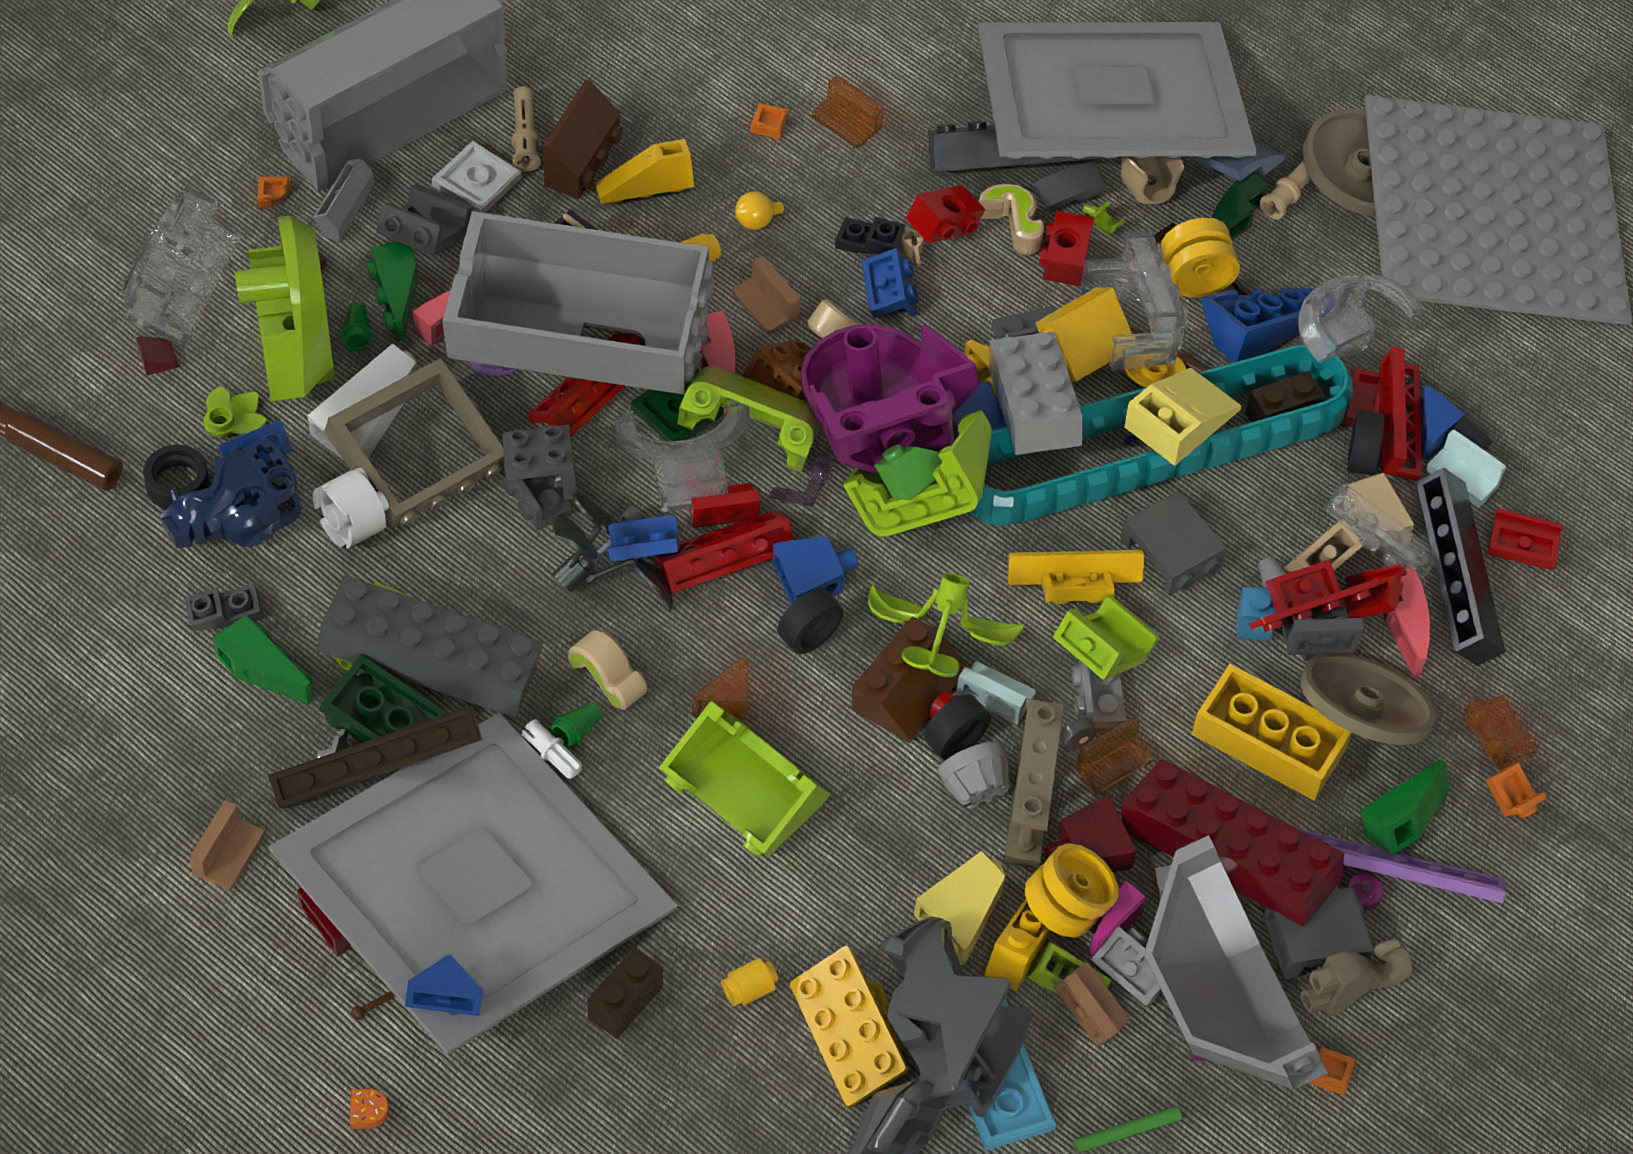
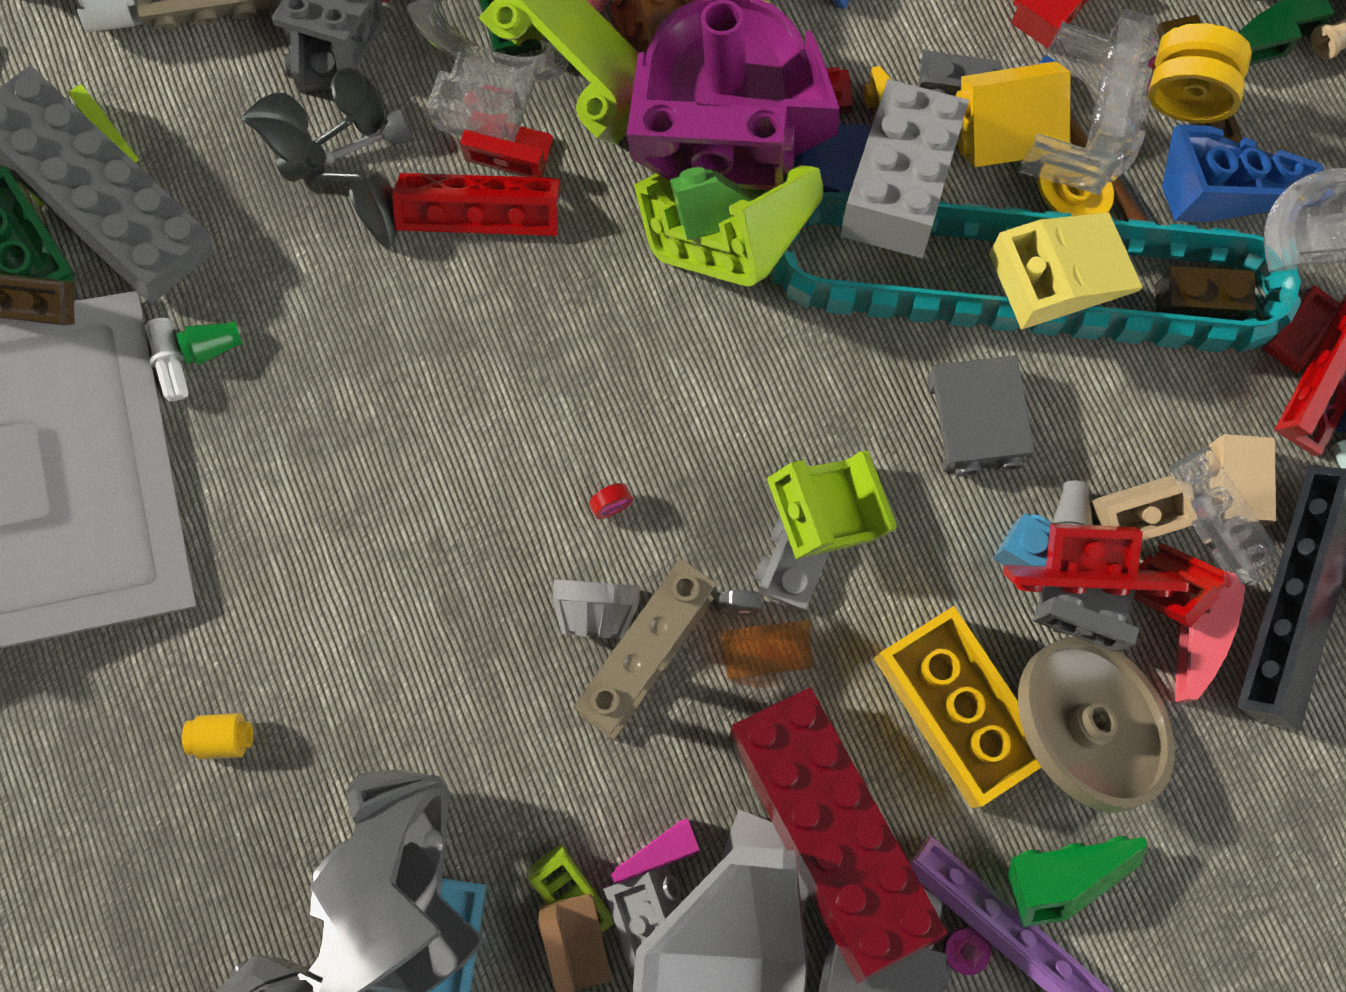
camera: 30 degrees right, 20 degrees up
(609, 668) = (270, 293): tan animal -> none
(625, 992) = (76, 687): dark brown brick -> none
(643, 537) = (388, 156): blue bracket -> none
(726, 690) = (385, 377): clear orange slope -> none
(743, 779) = (348, 488): lime windscreen -> none
(810, 621) = (513, 333): black tyre -> none
(811, 565) = (555, 270): blue torso -> none
(820, 468) = (610, 175): piece -> none
(850, 1025) = (293, 836): yellow bracket -> none
(898, 693) = (587, 450): reddish brown slope -> none
(950, 598) = (624, 359): lime plant -> none
(957, 726) = (604, 536): black tyre -> none
(965, 901) = (497, 753): light yellow slope -> none
(995, 691) = (682, 504): light aqua panel -> none
(1017, 947) = (544, 826): yellow slope -> none
(1071, 890) = (617, 806): yellow wheel -> none
(1076, 574) = (847, 406): yellow bracket -> none
(1099, 830) = (684, 742): dark red torso -> none
(1365, 442) = (1274, 389): black tyre -> none
(1499, 731) = (1239, 822): clear orange bracket -> none
(1514, 792) = (1214, 915): orange bracket -> none

